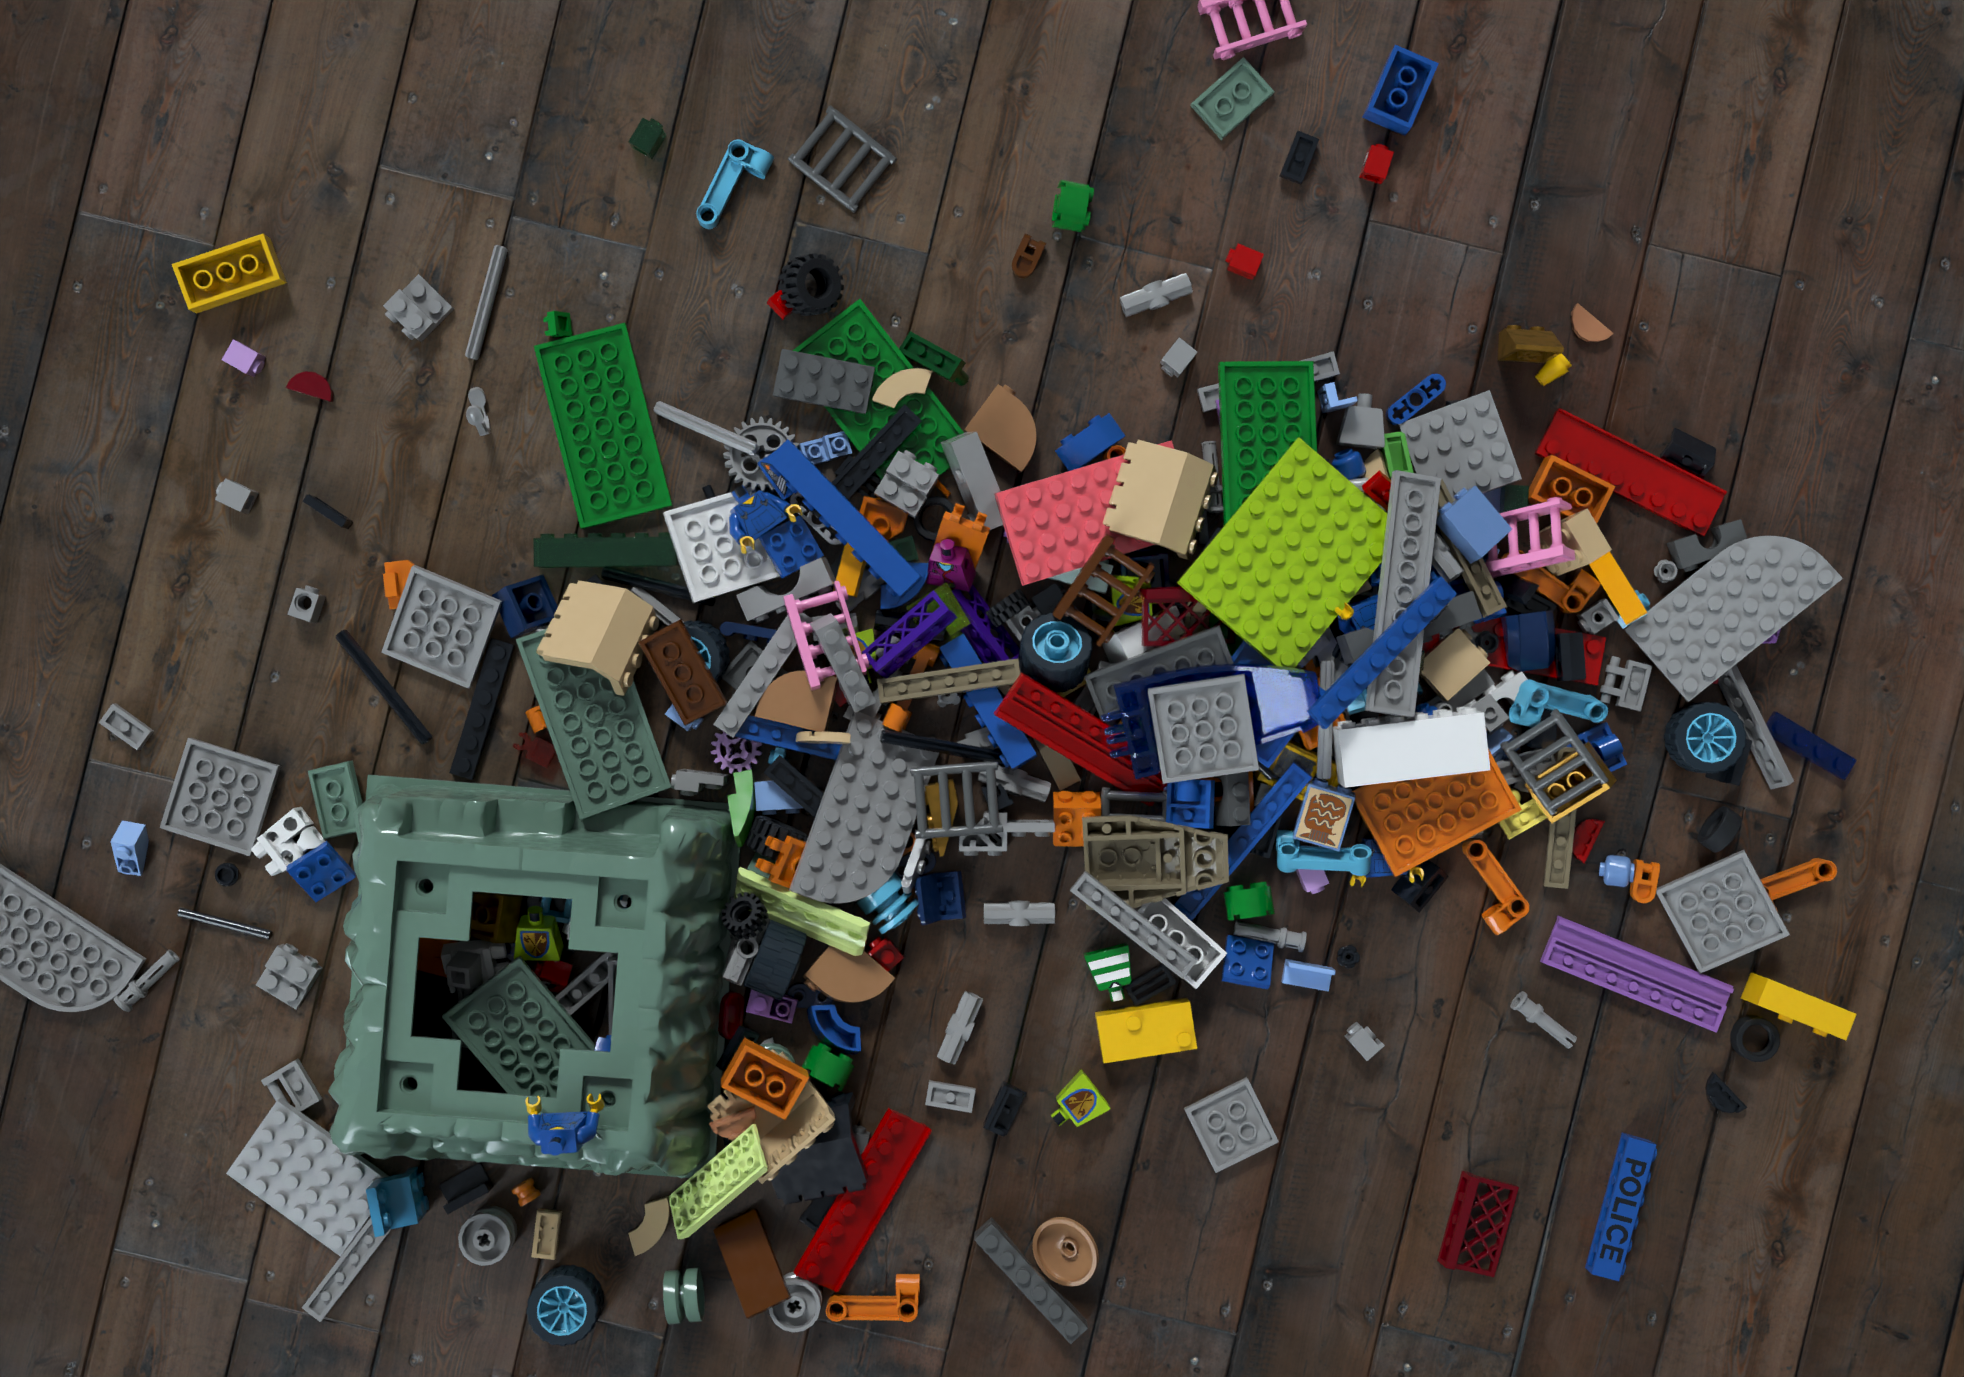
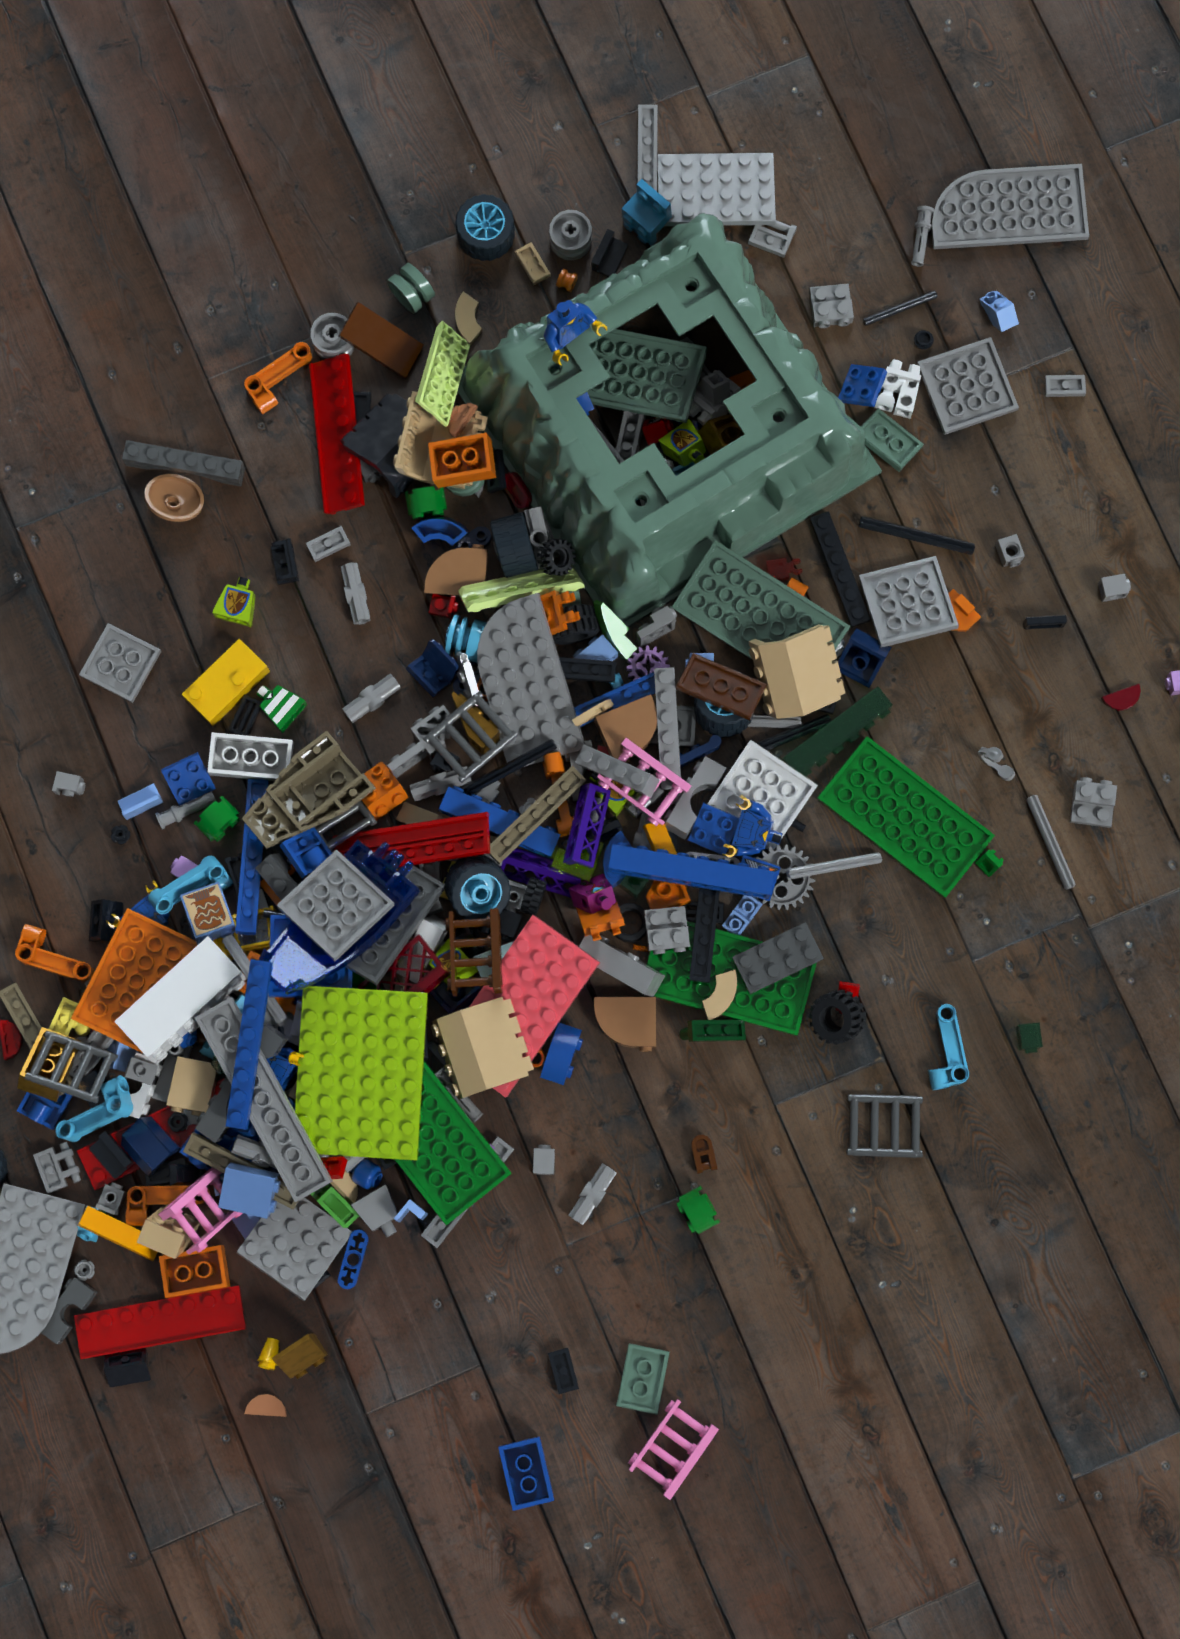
camera: 145 degrees right, 10 degrees down
(771, 1007) = (497, 510): medium lavender slope -> none
(1133, 924) = (286, 742): light grey plate -> none
(1244, 261) = (548, 1265): red brick -> none
(1376, 163) = (504, 1408): red brick -> none
(1513, 497) = (230, 1237): clear green brick -> none

